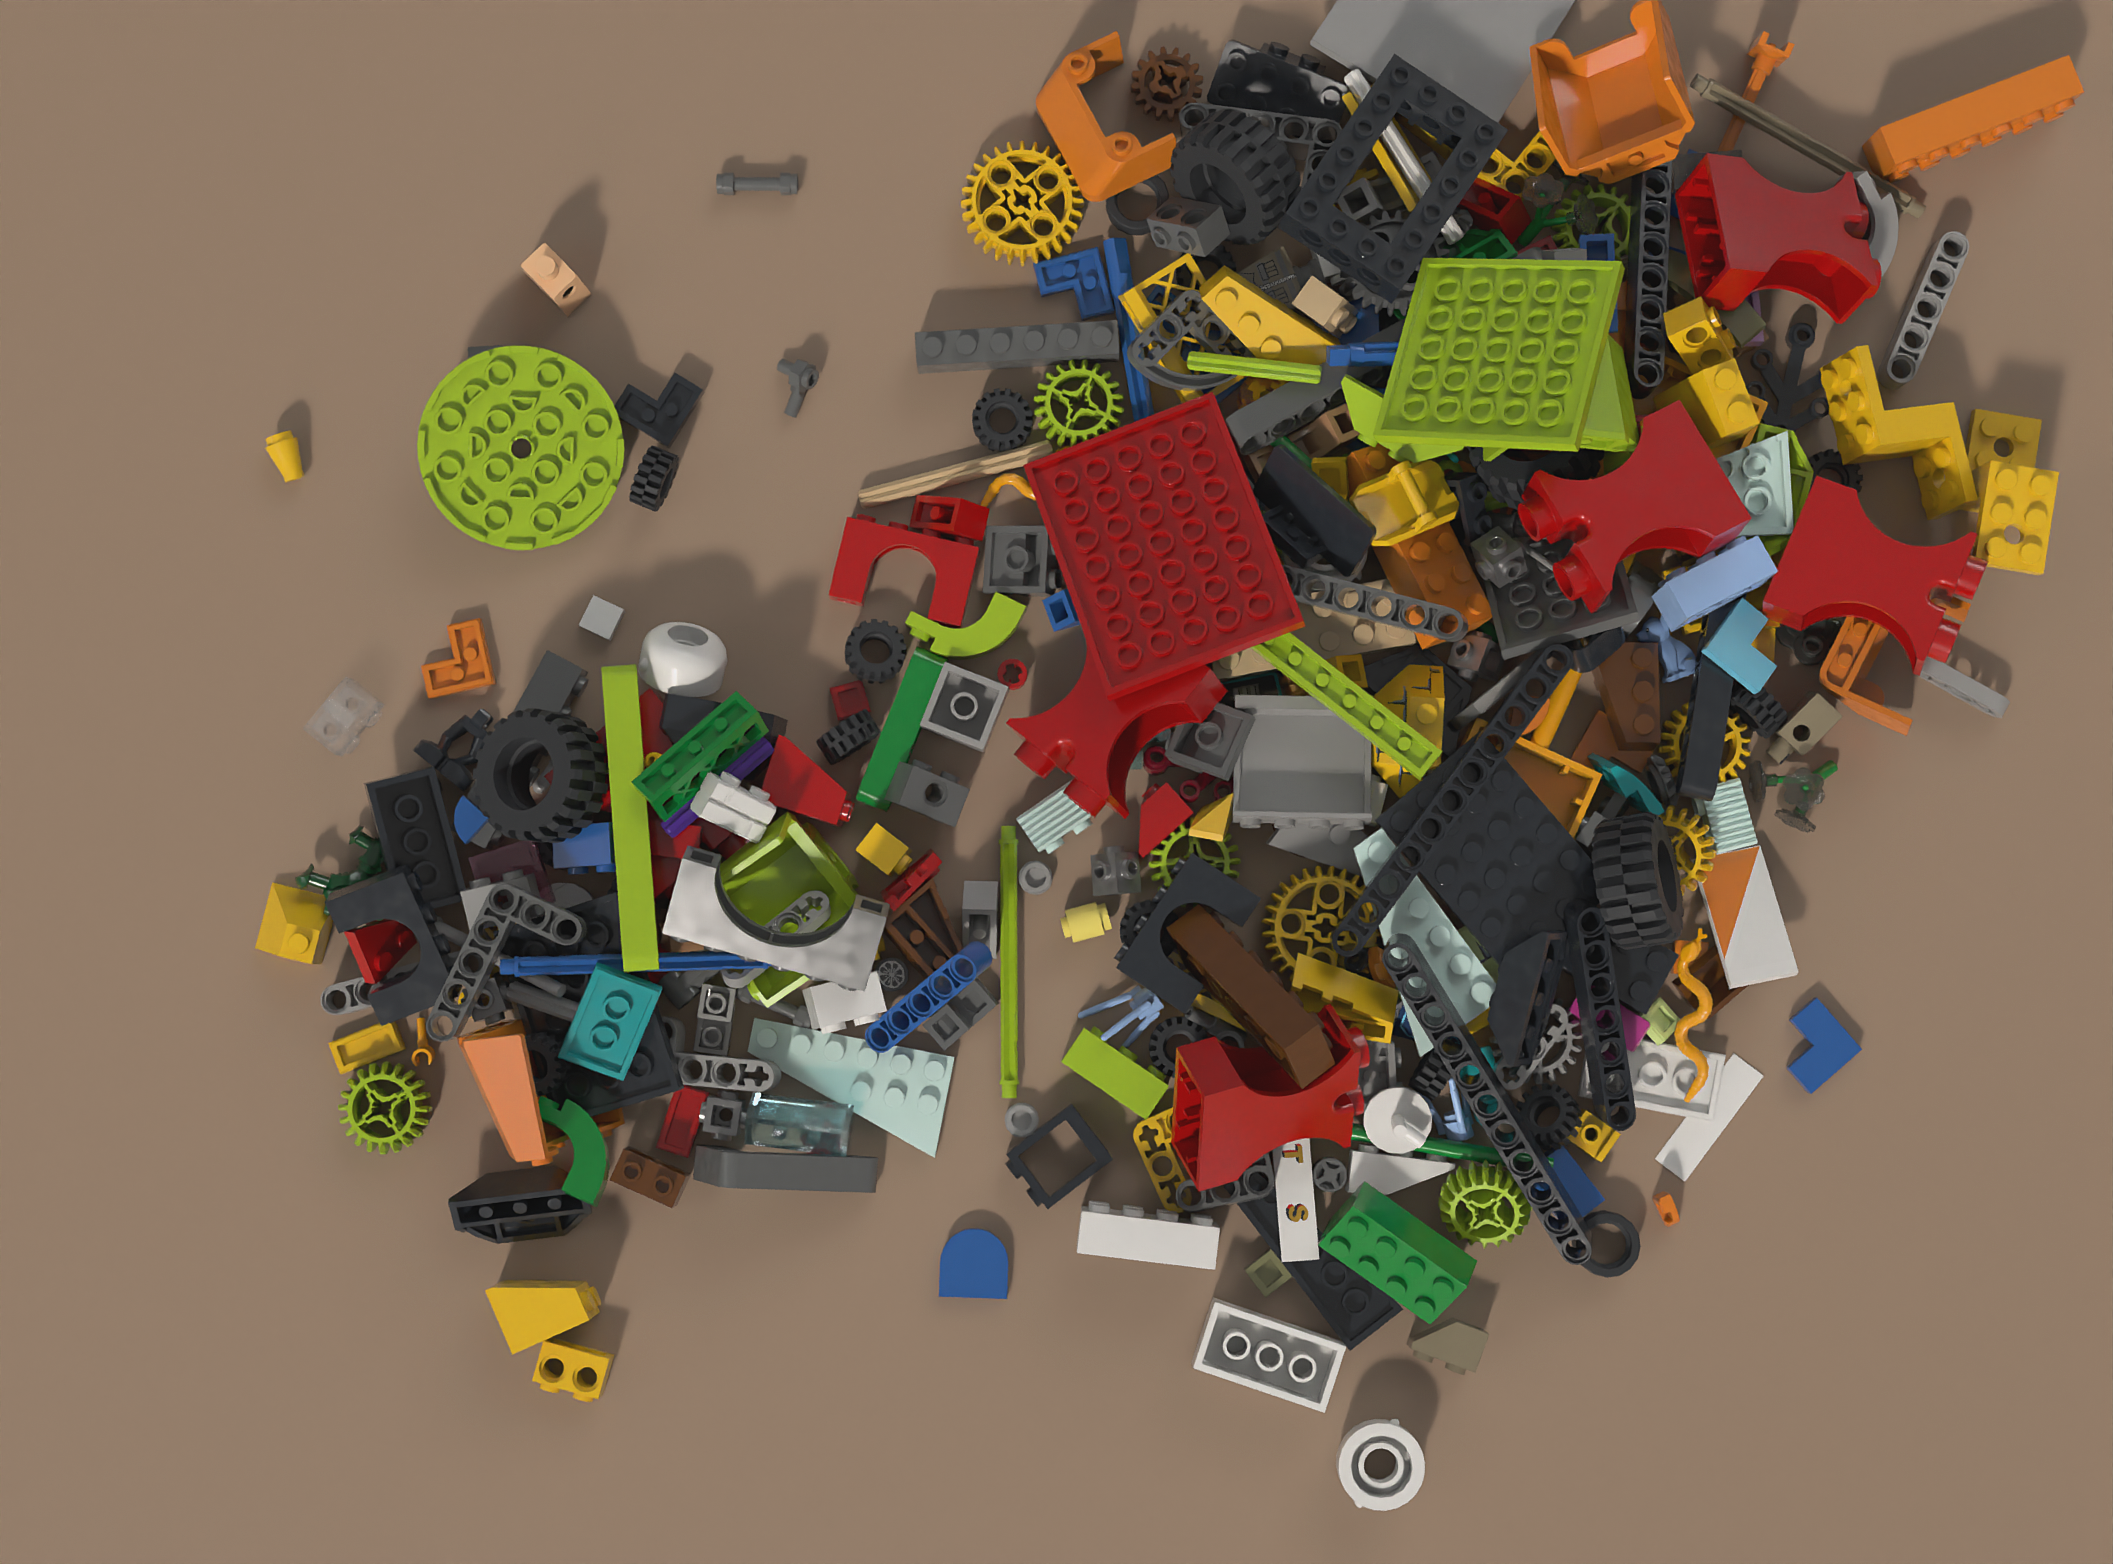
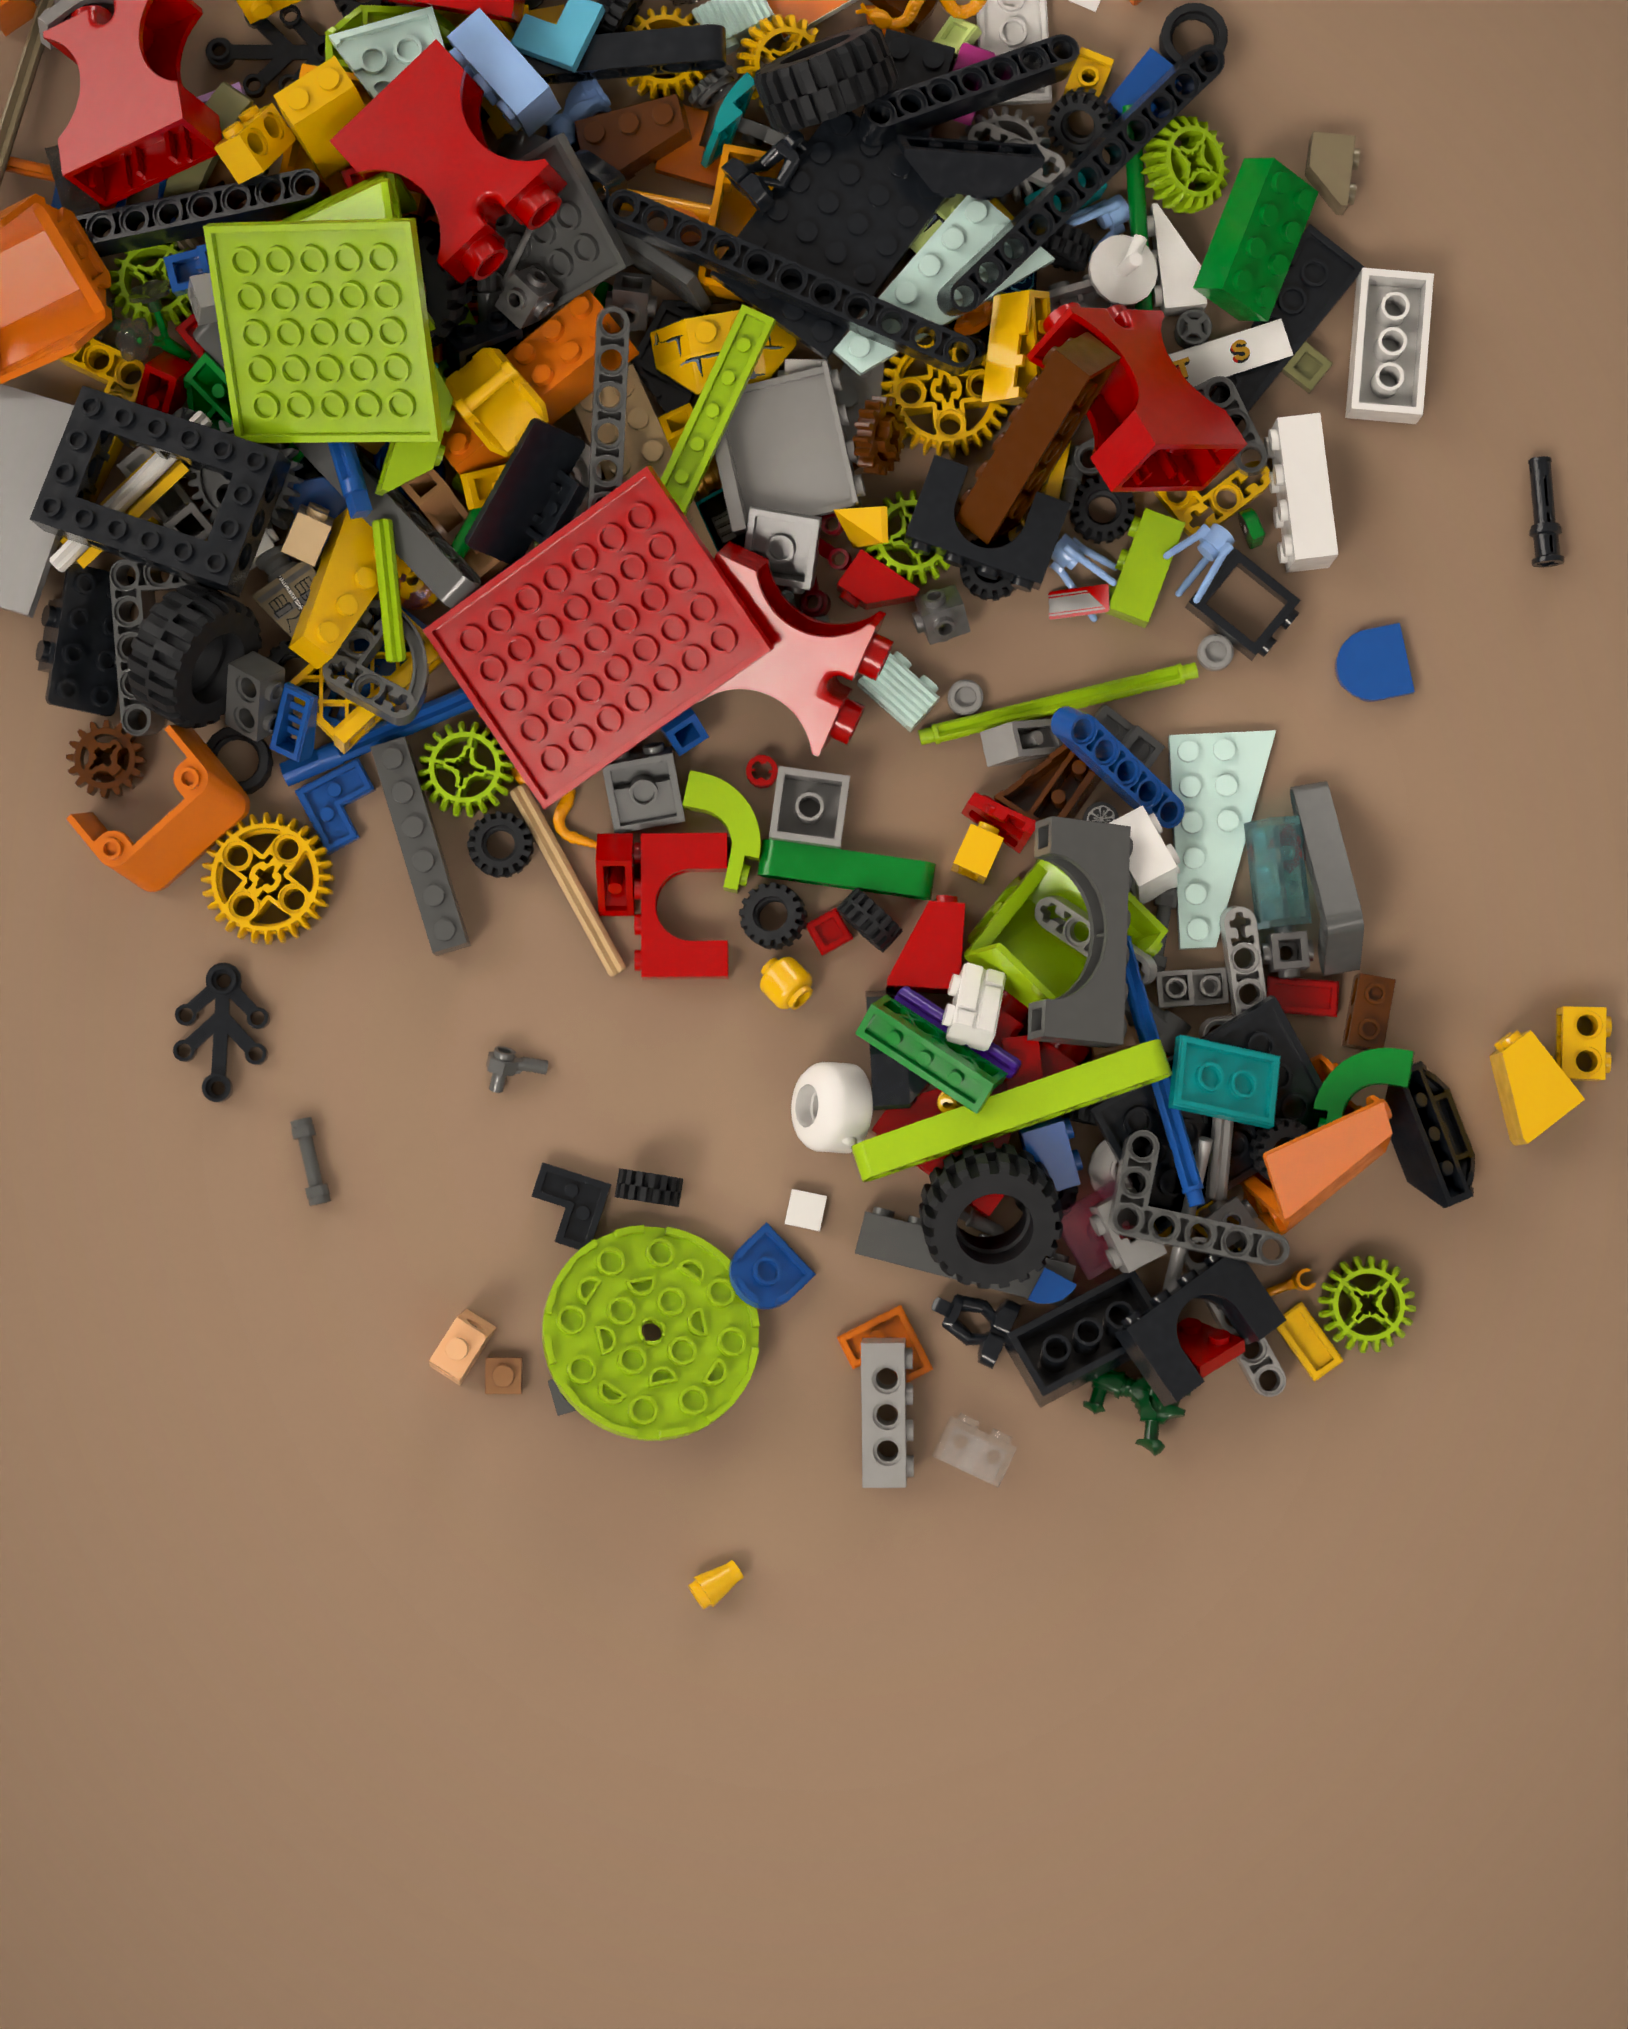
camera: 105 degrees left, 0 degrees up
(295, 925) = (1202, 1448): yellow slope -> none
(349, 626) = (877, 1469): none -> light grey brick
(521, 311) = (503, 1375): none -> medium nougat plate
(554, 569) = (767, 1270): none -> blue tile
(811, 648) = (786, 982): none -> yellow head
(899, 132) = (221, 1026): none -> black plant
(909, 790) = (908, 824): dark grey brick -> none
(1061, 1458) = (1545, 528): none -> black pin
(1085, 921) = (998, 634): light yellow brick -> none
(1097, 1003) = (1079, 601): none -> sticker
(1120, 1142) = (1214, 545): none -> light blue plant
(1130, 1182) = (1251, 527): none -> green tile
(1143, 243) = (282, 734): none -> blue slope
(1292, 852) = (879, 435): none -> reddish brown gear
(1386, 1492) = (1479, 183): white piece -> none
(1548, 790) = (755, 187): none -> black piece

